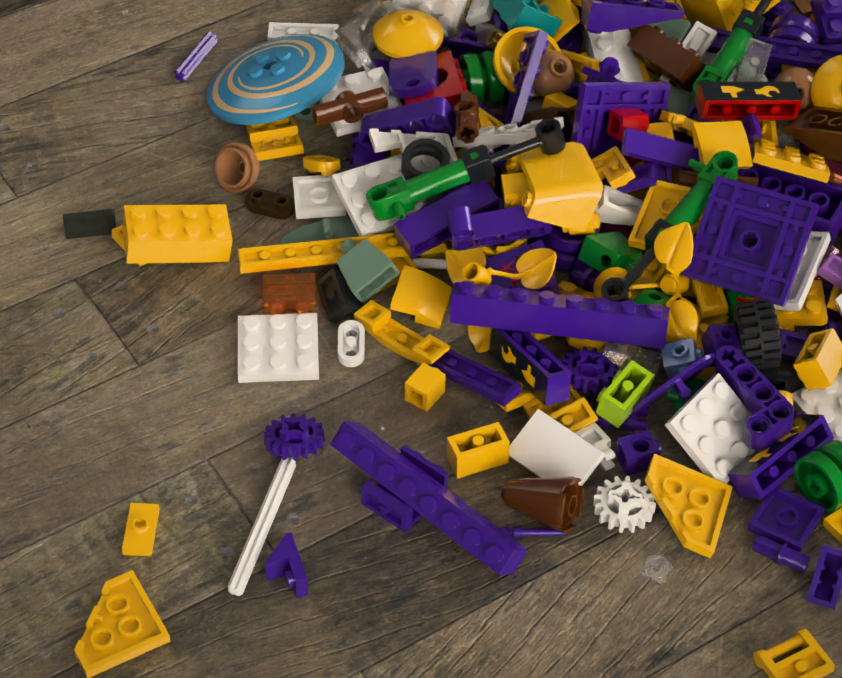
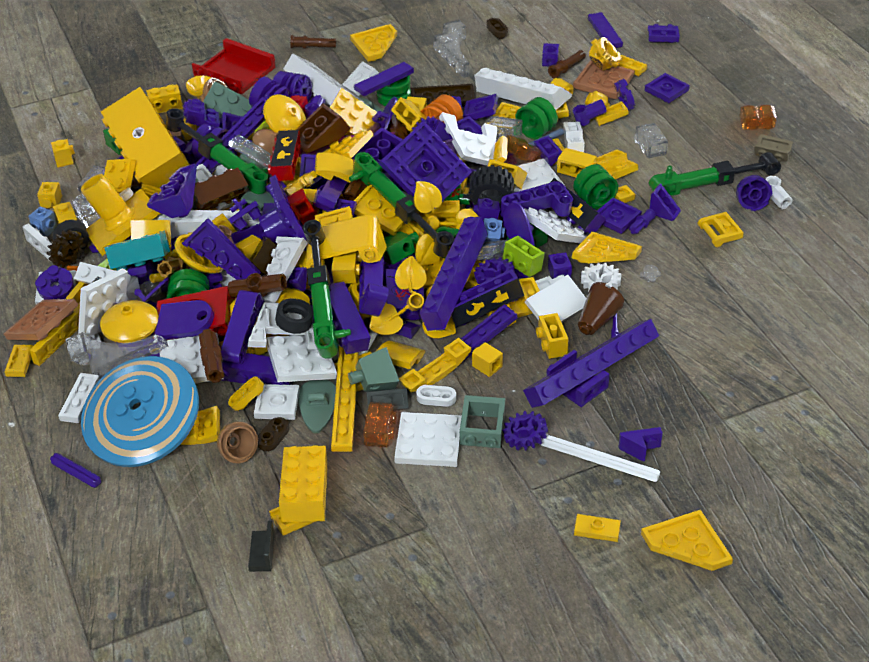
camera: 80 degrees left, 5 degrees down
(319, 373) = (482, 407): none -> sand green window

